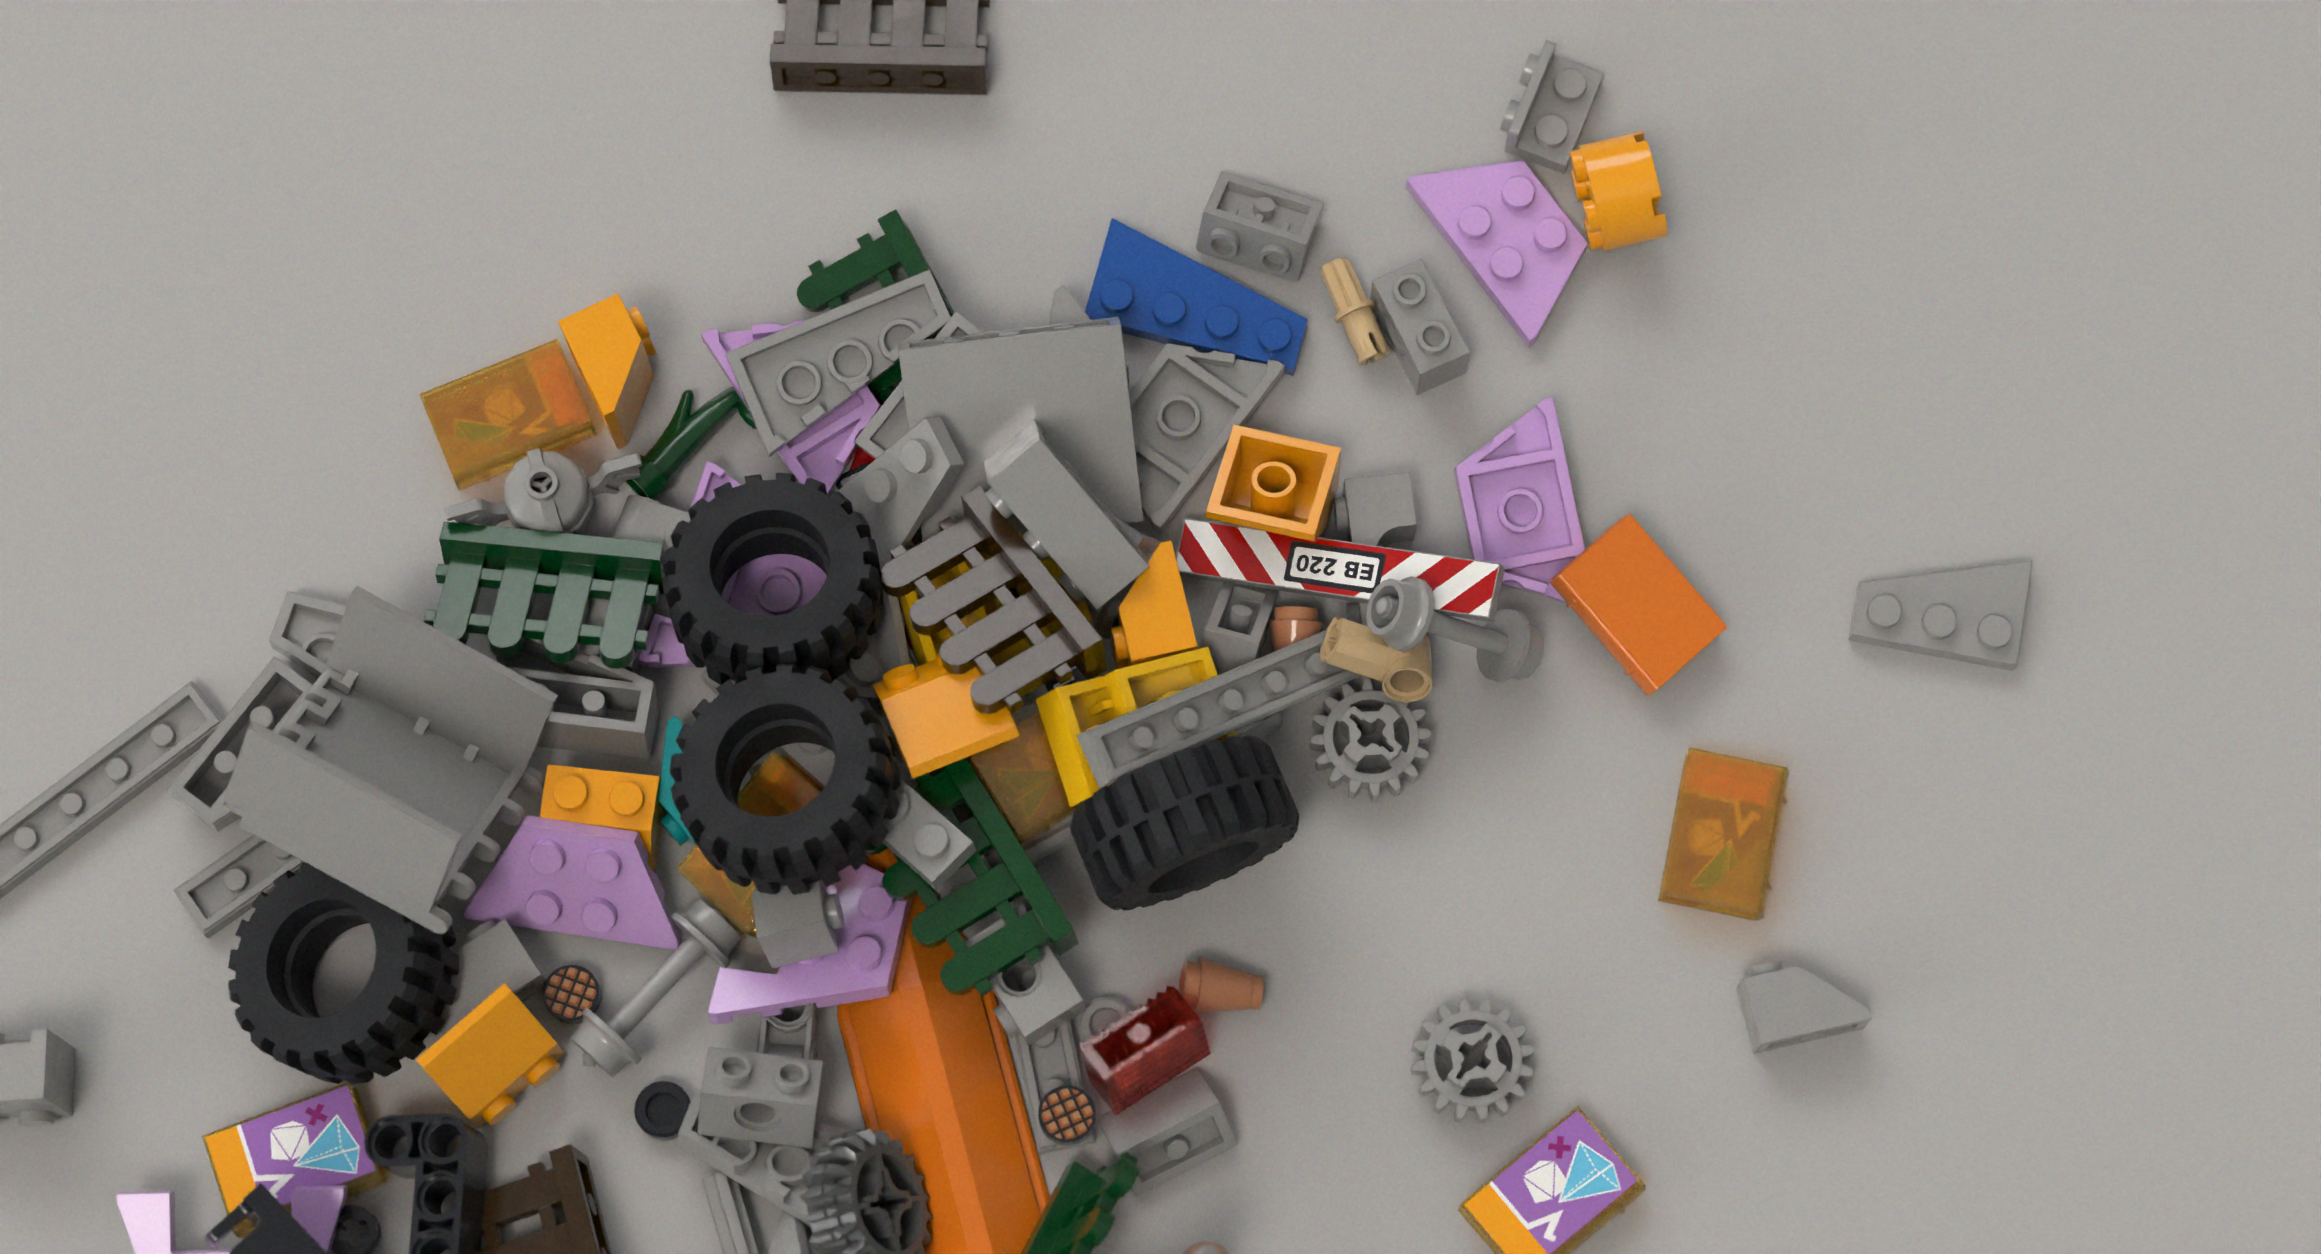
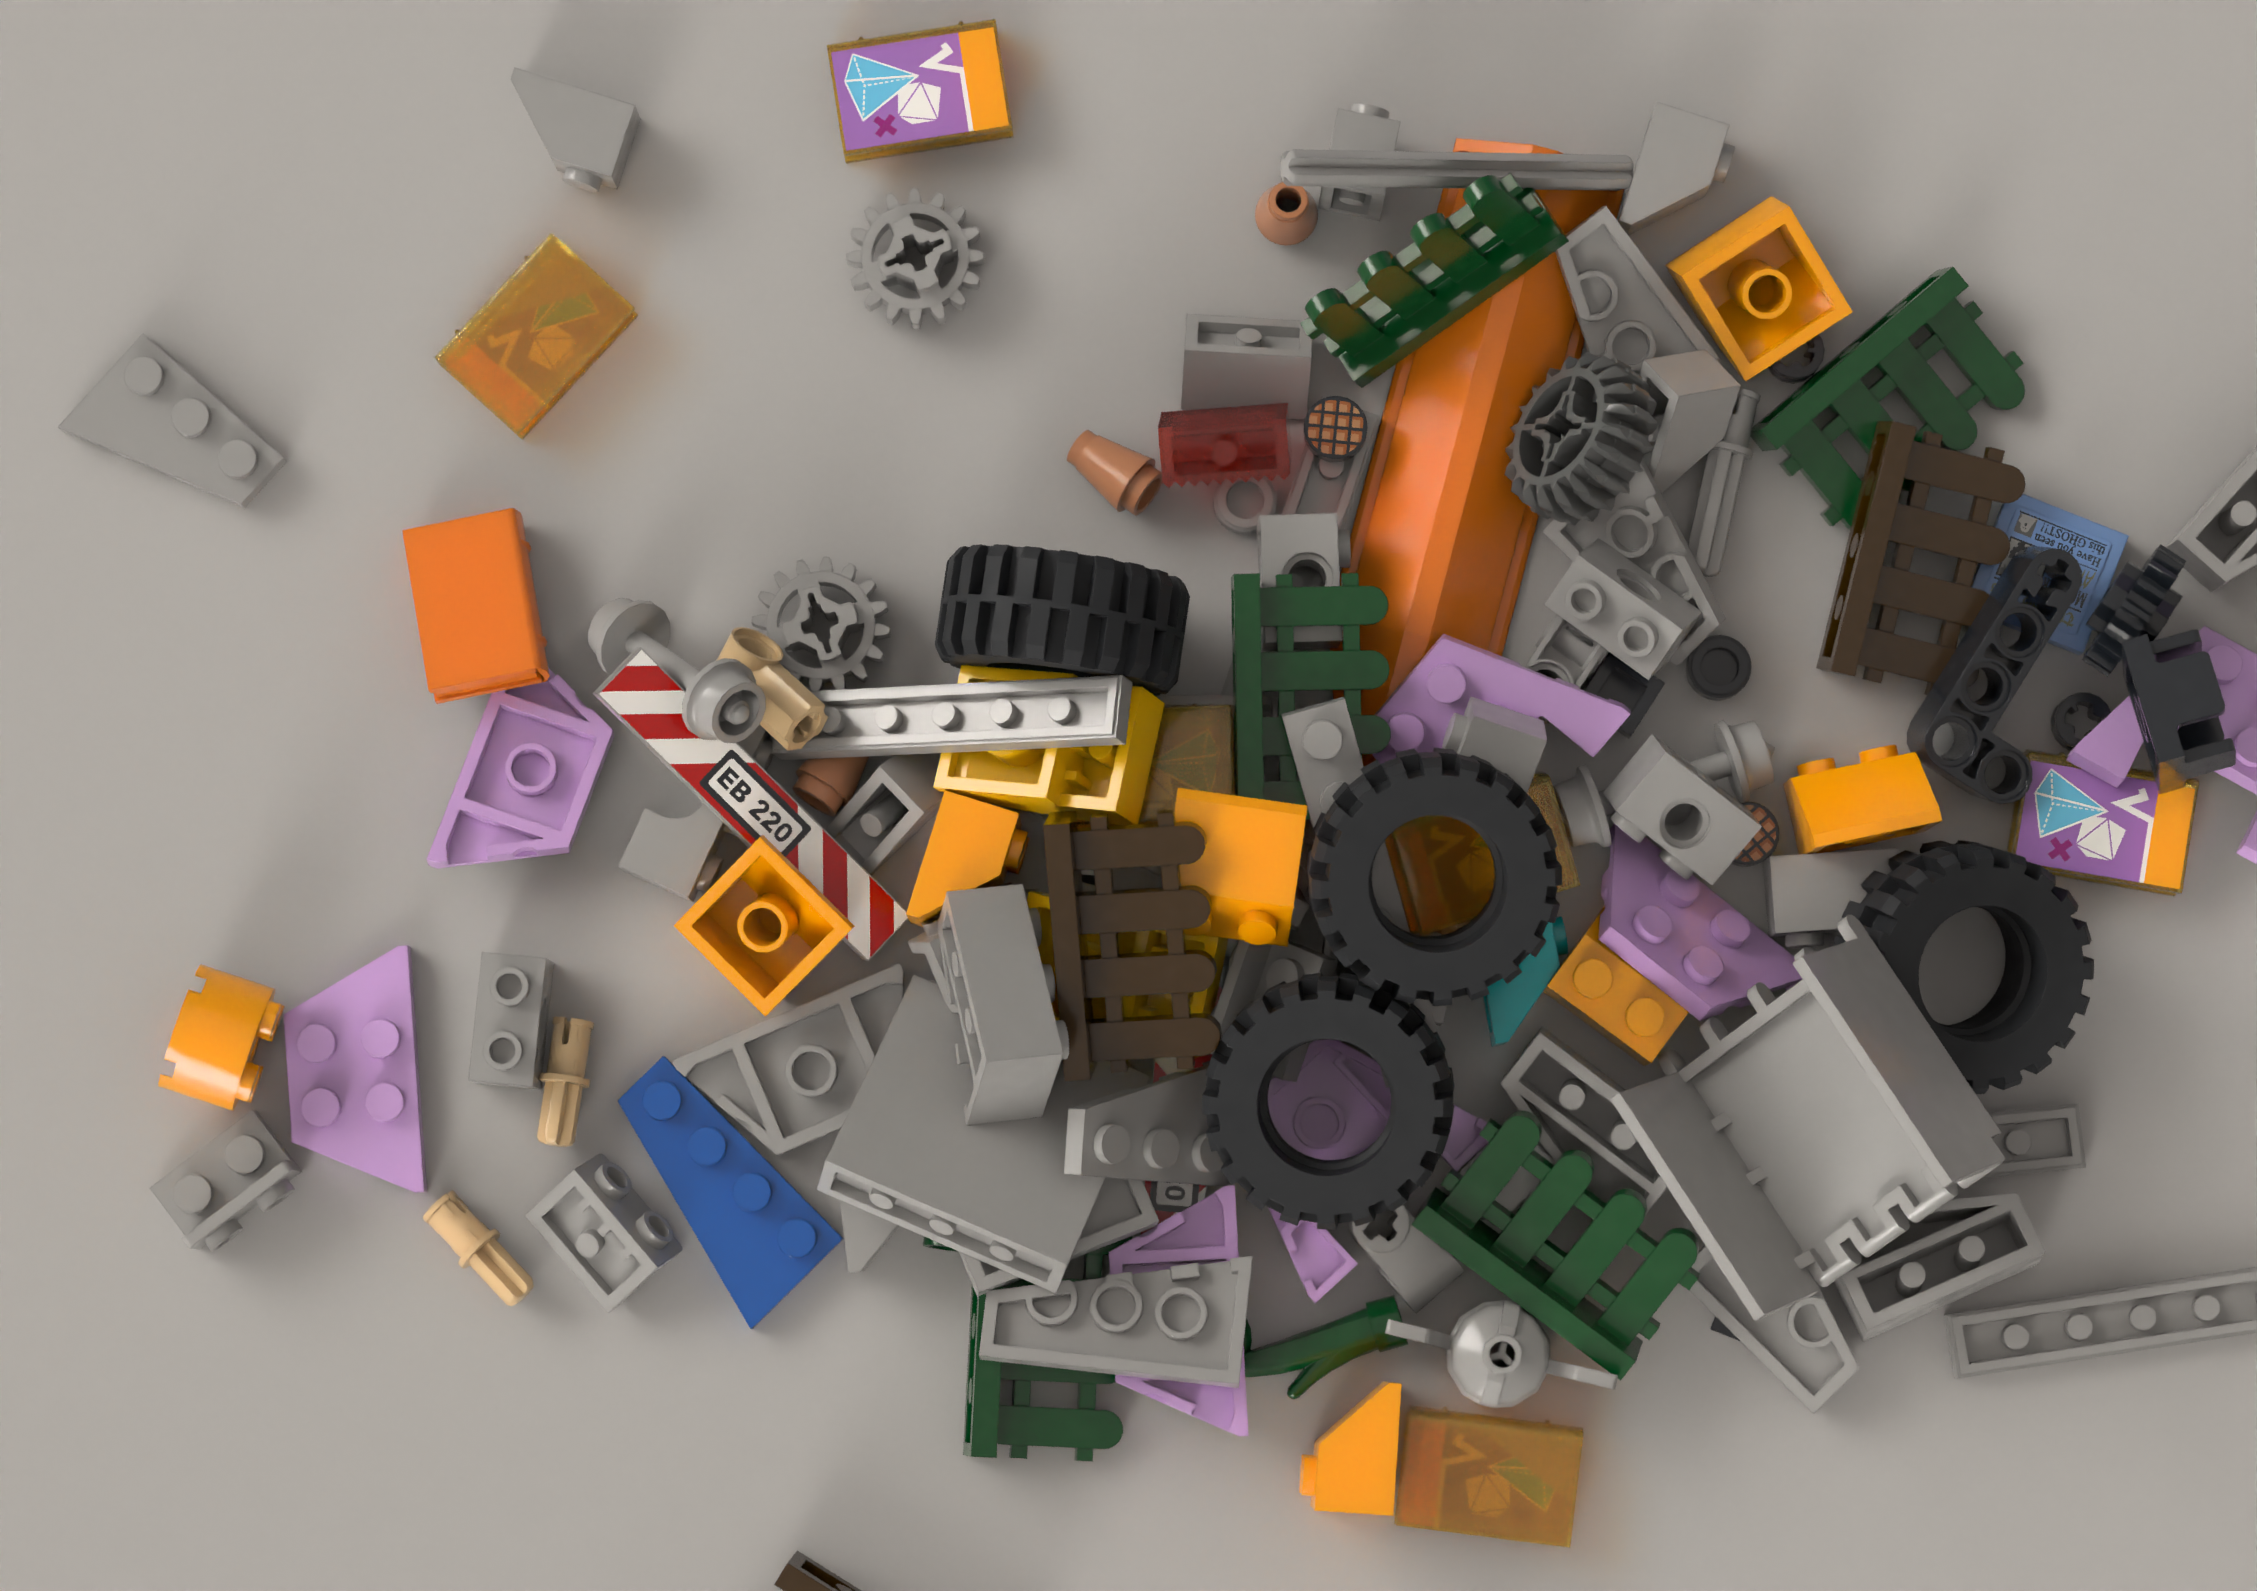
camera: 150 degrees left, 10 degrees up
(655, 978) = (1662, 779): none -> light grey brick
(738, 1035) = (1625, 685): none -> black plate
(1341, 163) = (479, 1248): none -> tan axle

